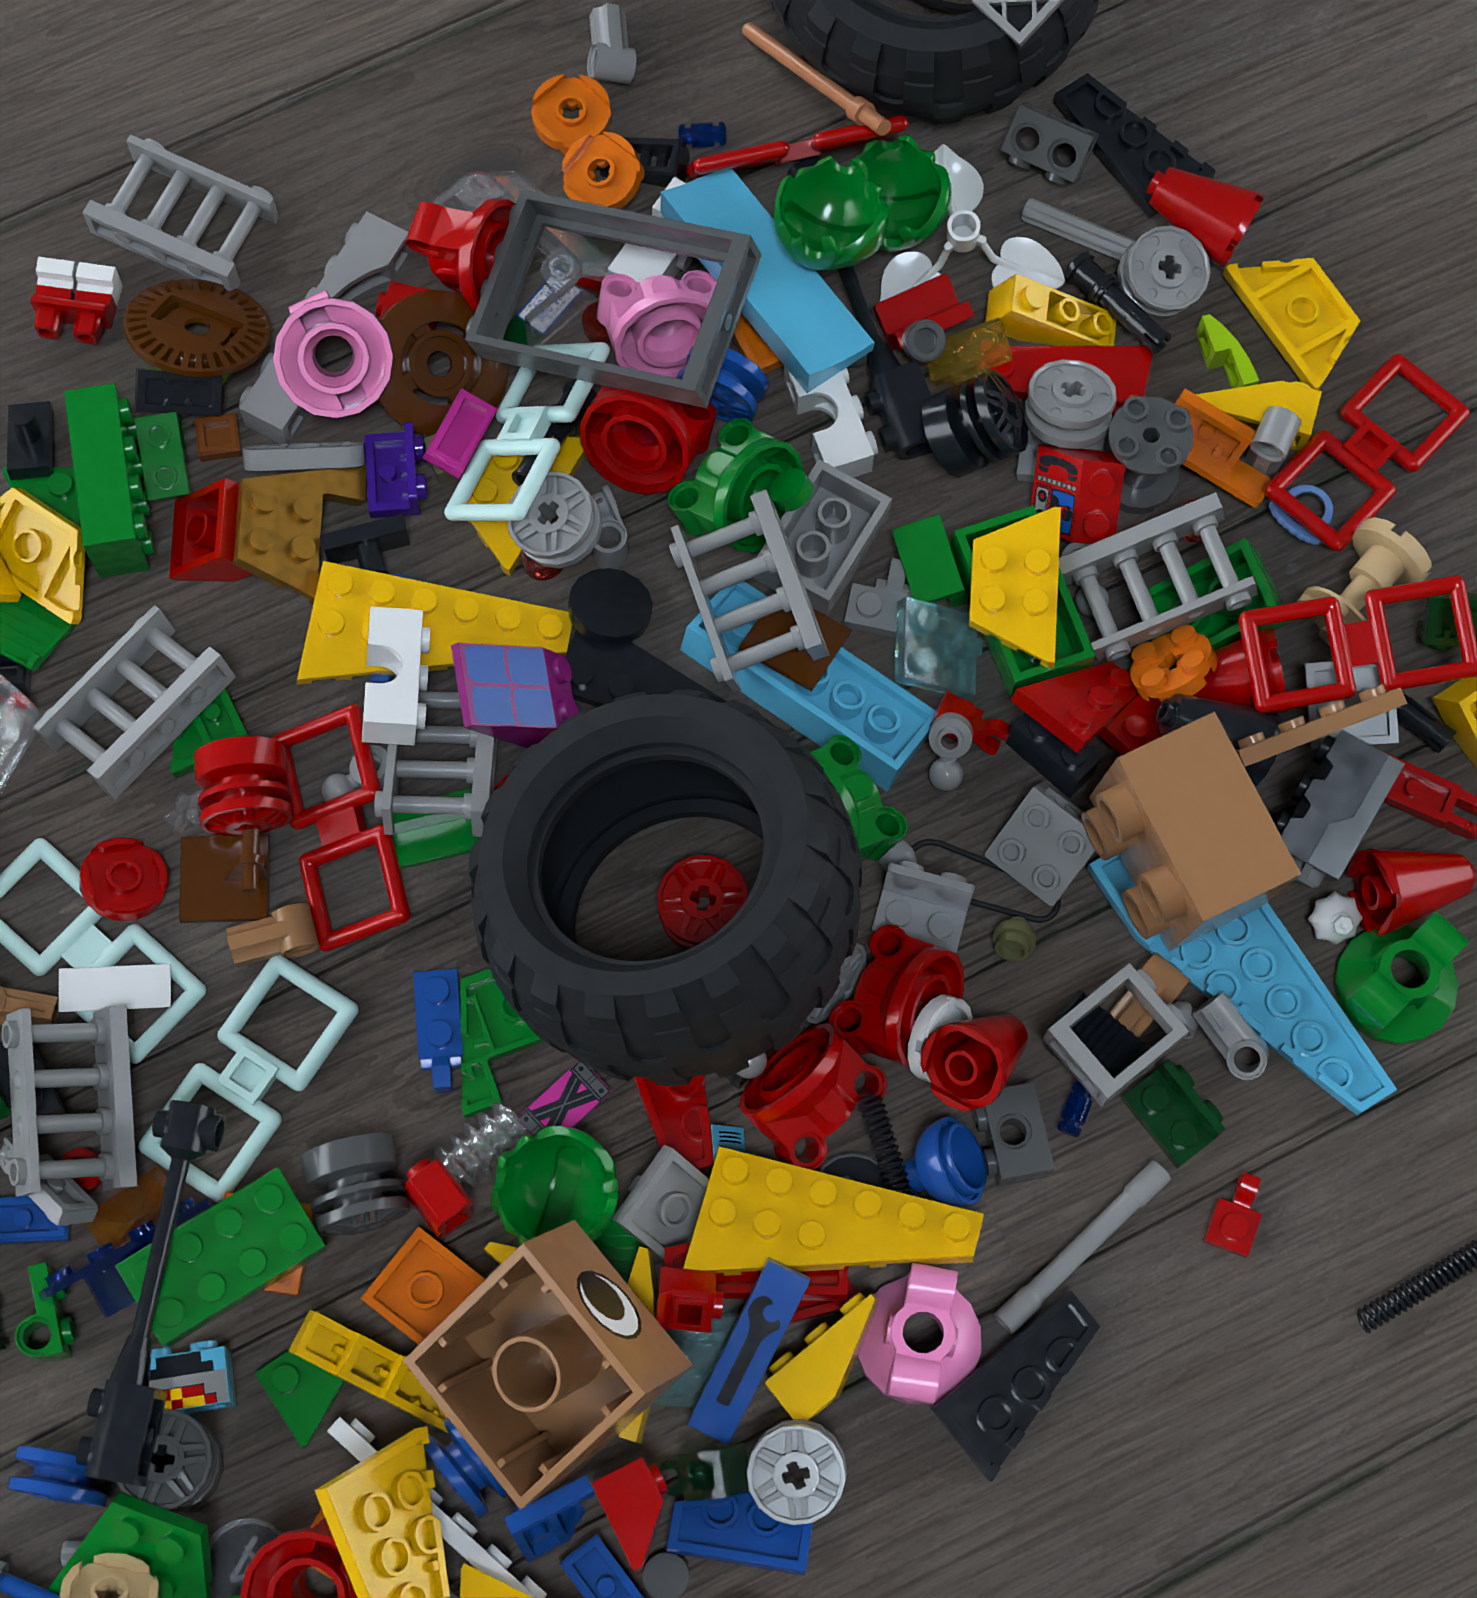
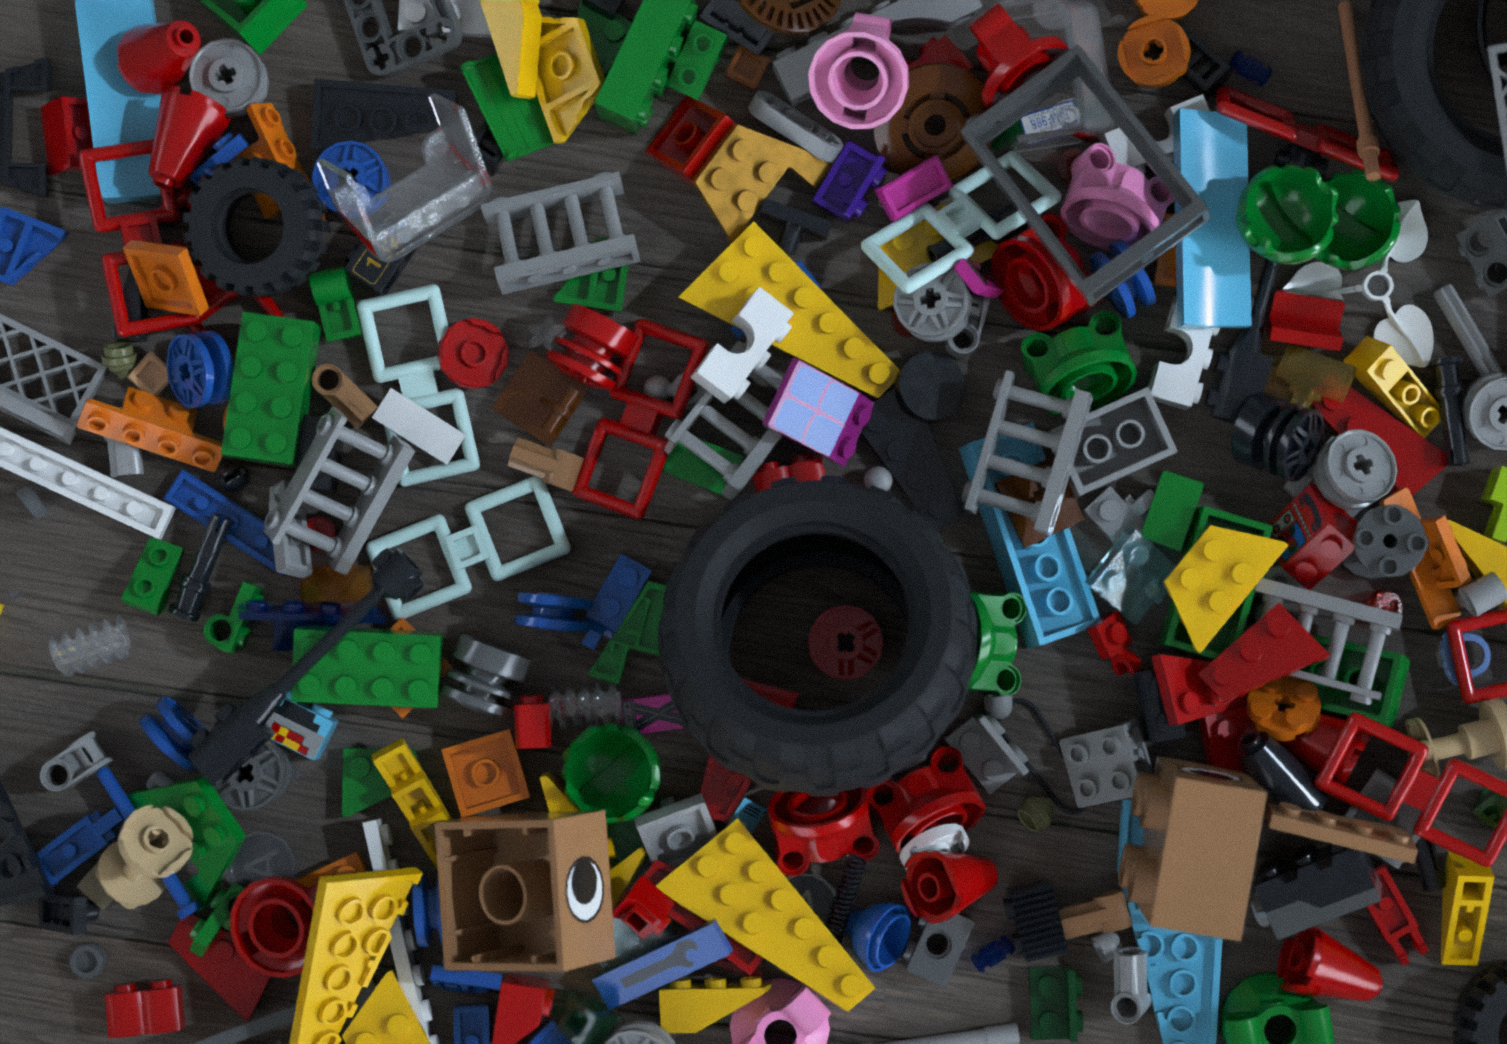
camera: 35 degrees right, 15 degrees up
(381, 1071) = (553, 612): none -> blue wheel
(583, 469) = (978, 278): none -> dark pink tile
(791, 489) = (1111, 397): green tile -> none
(924, 340) = (1289, 346): dark grey tile -> none
(946, 771) = (1076, 665): light grey plate -> none
(1085, 1064) = (1014, 941): light grey window -> none
(1113, 623) = (1265, 652): none -> red wing
(1335, 918) = (1262, 952): white piece -> none

